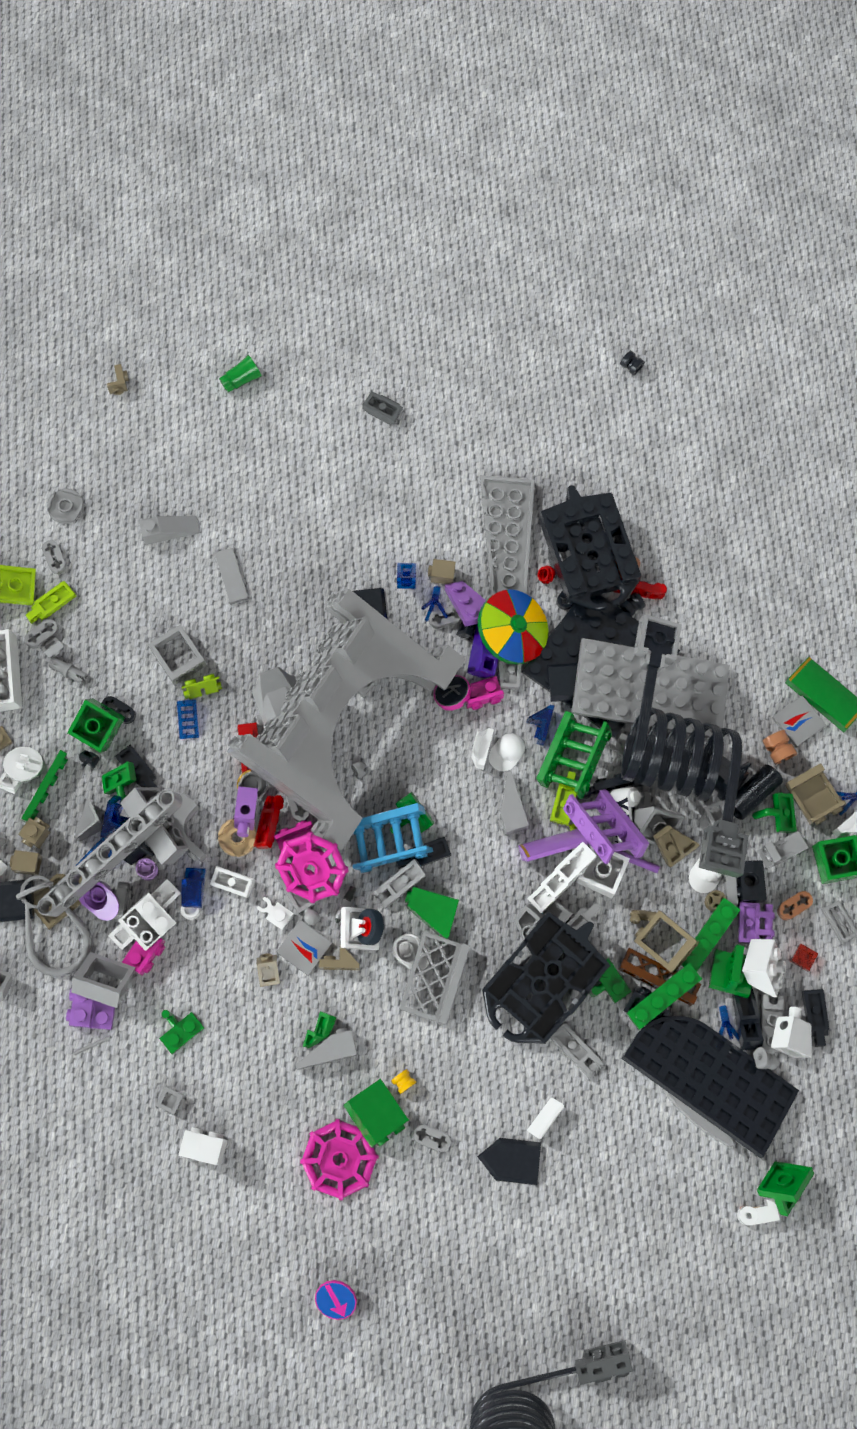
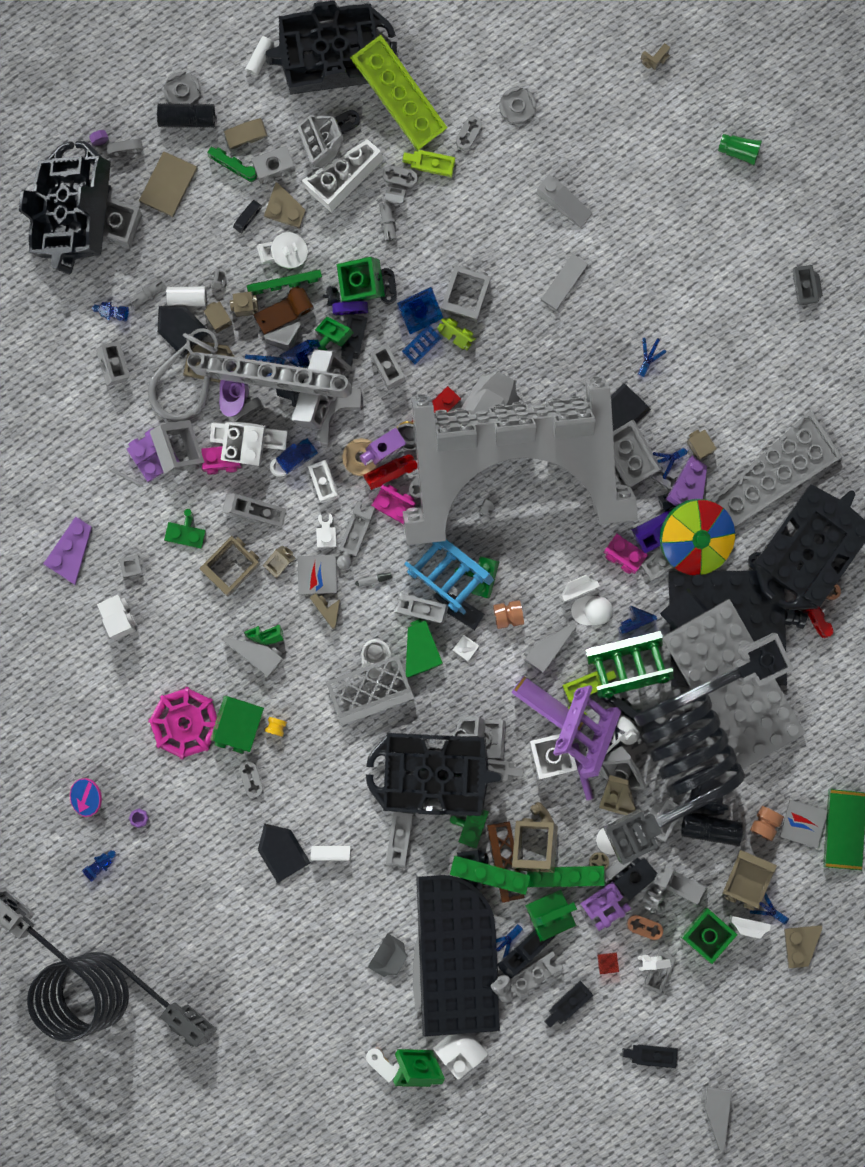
camera: 55 degrees right, 10 degrees up
(68, 808) = (285, 311): none -> reddish brown door
(109, 753) = (347, 308): none -> dark purple beam
(113, 1144) = (69, 551): none -> medium lavender wing
(143, 869) = (282, 406): lavender wheel -> none
(159, 699) = (419, 310): none -> clear blue slope
(183, 758) = (387, 367): none -> light grey brick
(207, 958) = (253, 510): none -> light grey slope
(227, 992) = (239, 544): none -> dark tan window
(316, 858) = (386, 528): dark pink plate -> none
(345, 563) = (648, 359): none -> clear blue plant
(361, 928) = (362, 605): plate -> none
(390, 1265) = (138, 818): none -> medium lavender tile
(403, 1330) = (102, 862): none -> clear blue piece
(406, 575) = (675, 418): clear blue slope -> none
(416, 624) = (633, 455): none -> light grey plate
(454, 695) = (605, 535): tile -> none
(459, 873) = (465, 648): none -> white tile
(461, 815) = (508, 614): none -> nougat wheel
(546, 574) = (766, 529): red plate -> none
(562, 877) = (520, 729): white slope -> none
(670, 1136) = (389, 957): none -> dark grey slope
(764, 966) = (574, 936): white slope -> none
(779, 880) = (655, 900): none -> light grey gear
(783, 813) = (714, 864): green plate -> none
(793, 1035) = (537, 996): white torso -> none
(796, 1138) = (460, 1053): none -> white brick
(832, 918) = (653, 963): none -> white plate

